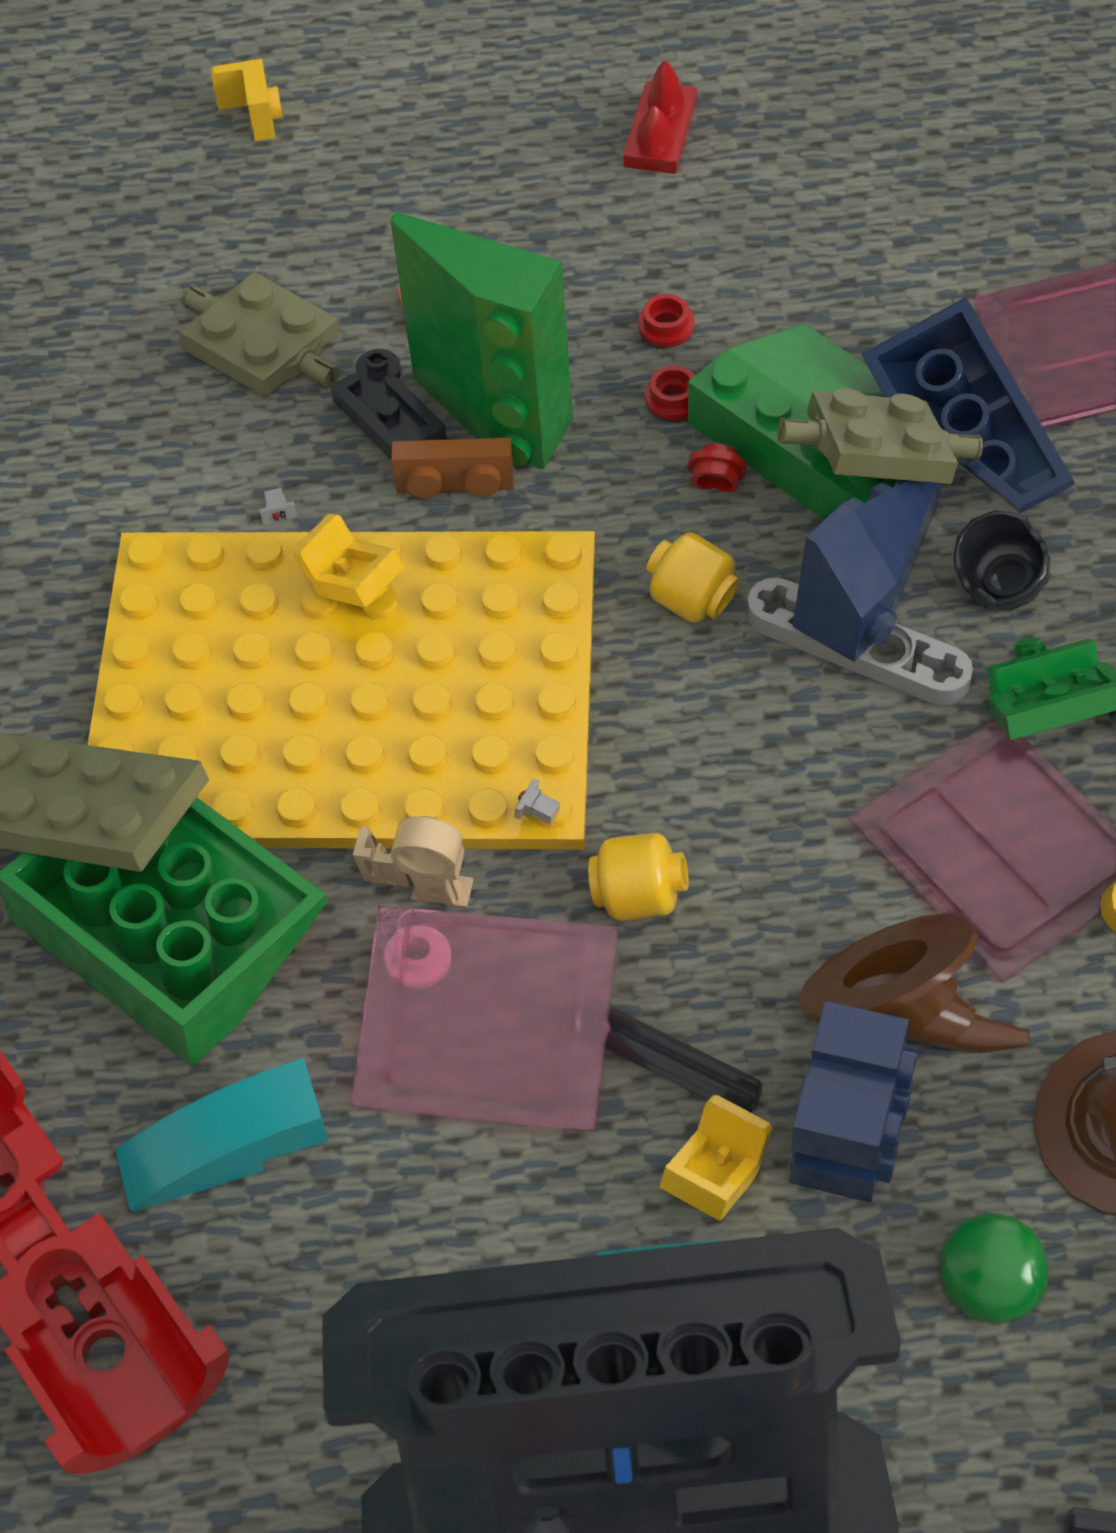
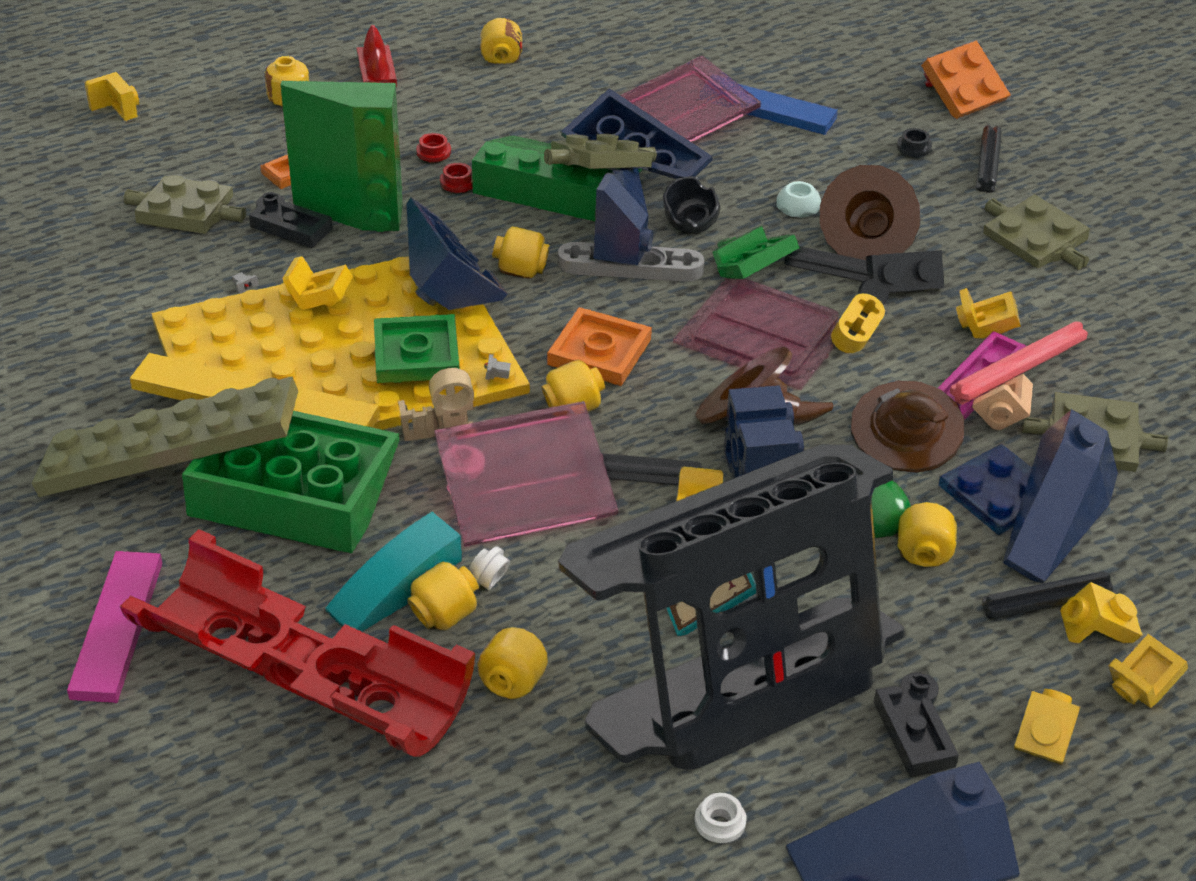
camera: 30 degrees left, 15 degrees down
(147, 722) = (188, 380): none -> yellow tile
(268, 1199) = (443, 596): none -> yellow head
(291, 1359) = (514, 660): none -> yellow head
(357, 1169) = (489, 567): none -> white plate
(433, 733) = (414, 347): none -> green plate
(453, 466) = (347, 234): dark orange plate -> none
(502, 135) = (283, 69): none -> yellow head
(550, 583) = (443, 266): none -> dark blue wedge
(717, 468) = (504, 203): red plate -> none
(724, 800) = (602, 343): none -> orange plate
(871, 127) = (501, 41): none -> yellow head
(1039, 1357) = (927, 532): none -> yellow head

